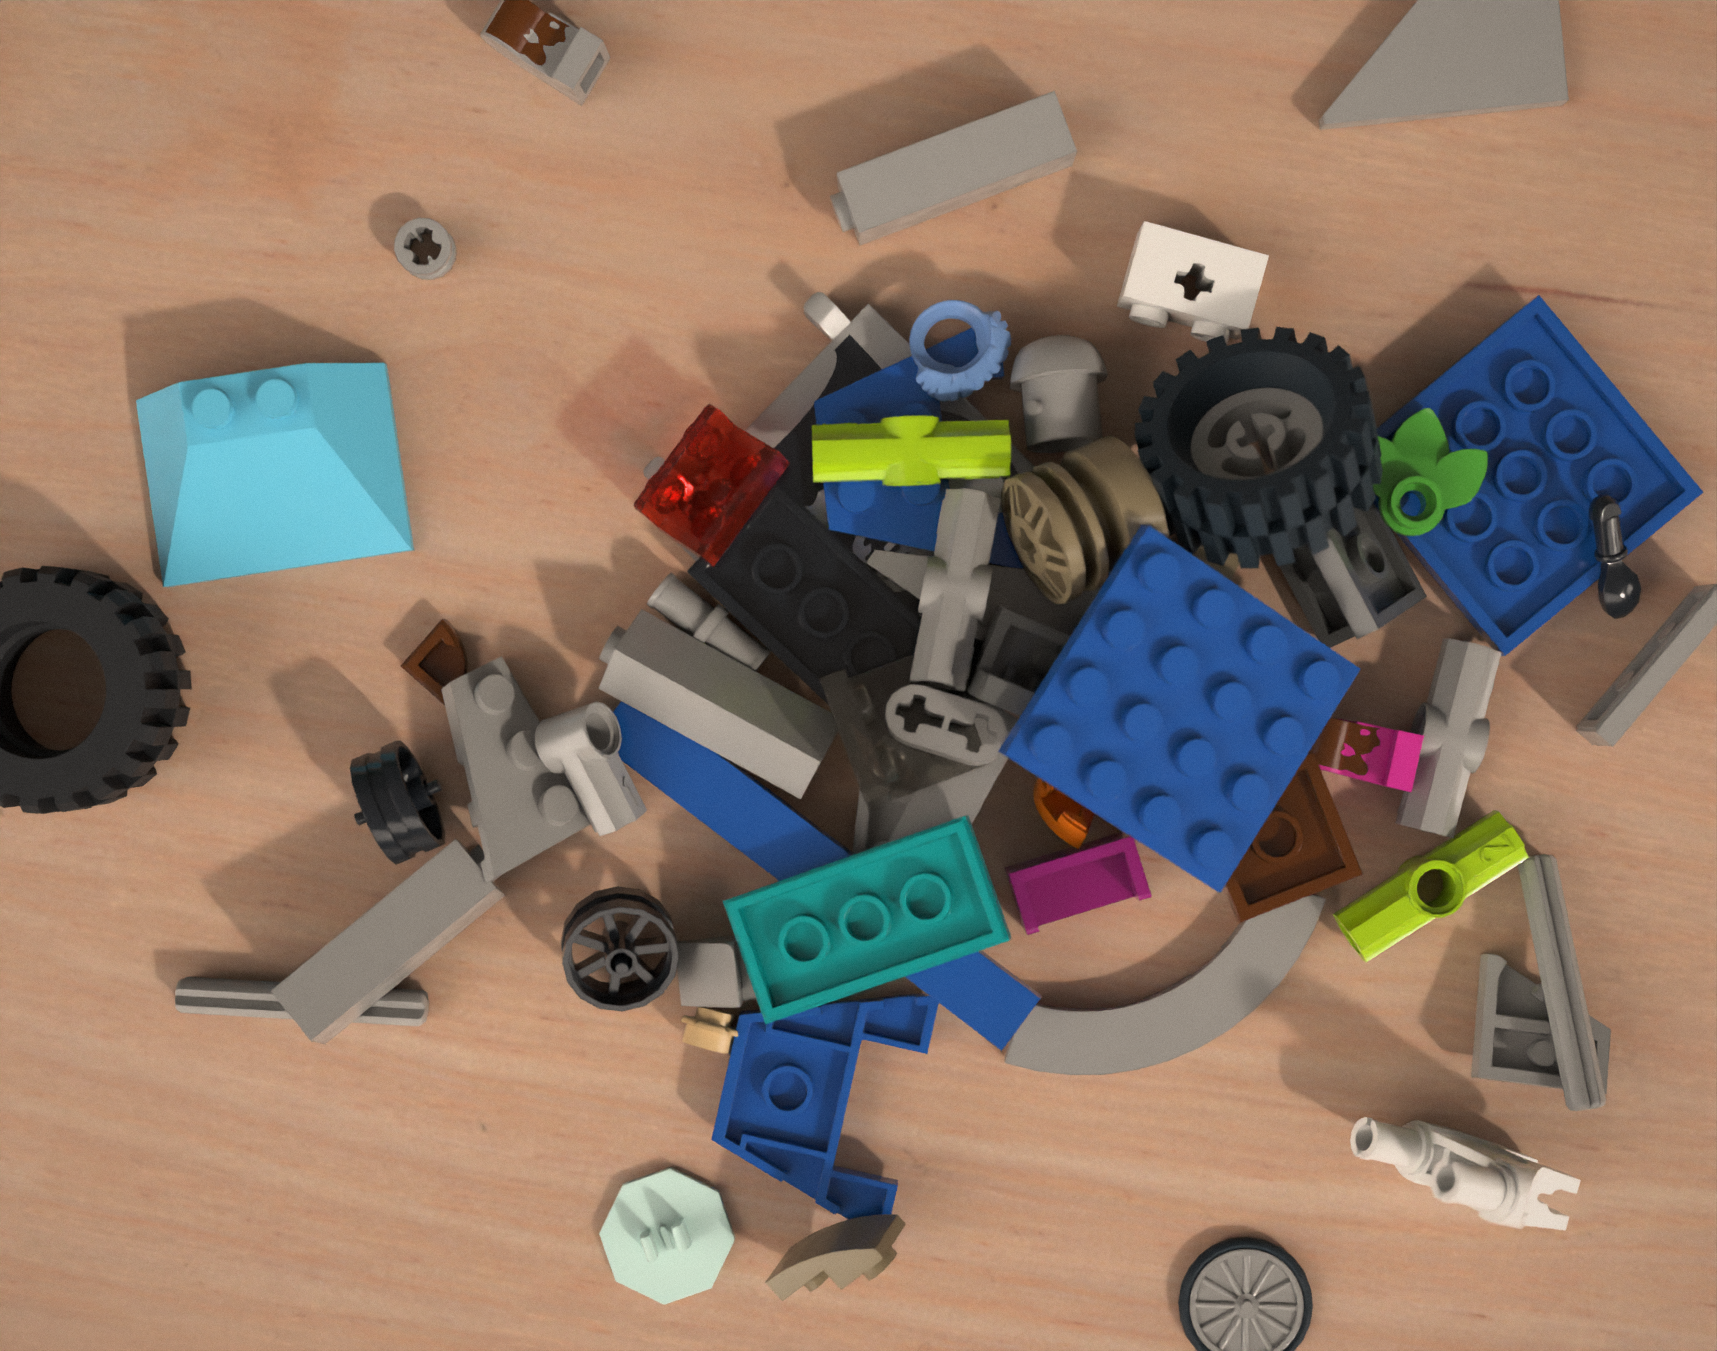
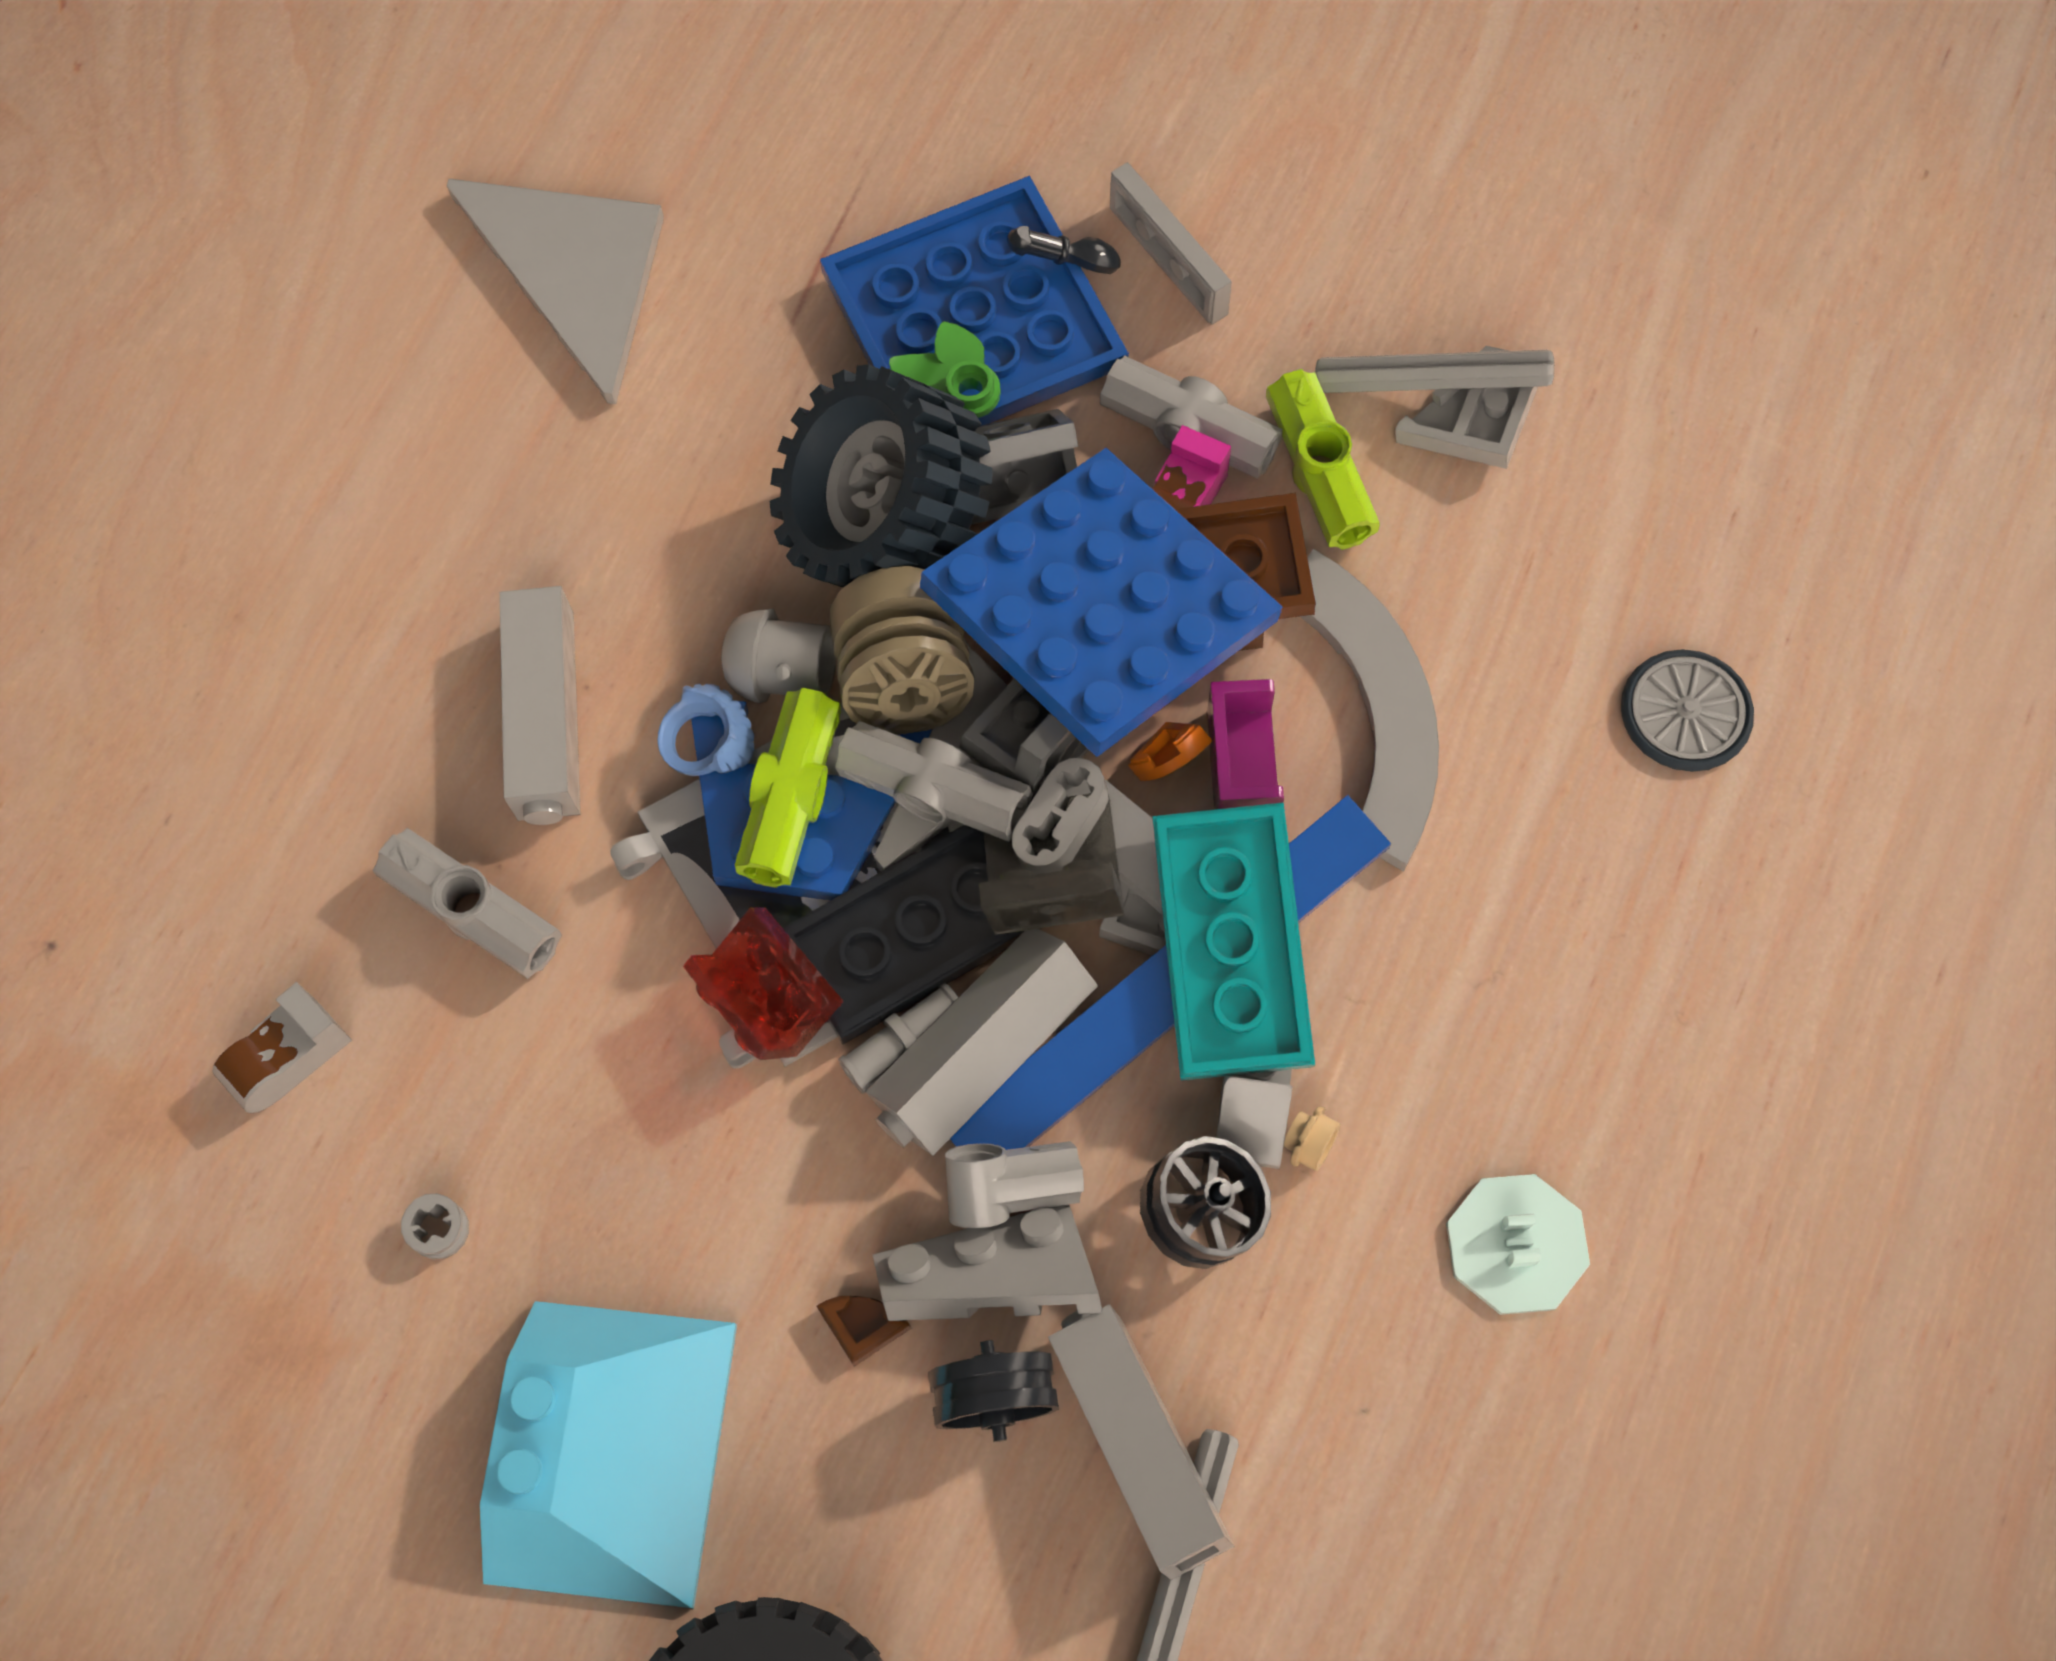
camera: 75 degrees left, 20 degrees down
(742, 133) = (496, 920): none -> light grey piece
(792, 1090) = (1392, 1073): blue wing -> none
(838, 1252) = (1561, 1045): dark tan slope -> none
(1222, 271) = (713, 529): white brick -> none
(1467, 1170) = (1591, 480): white connector -> none

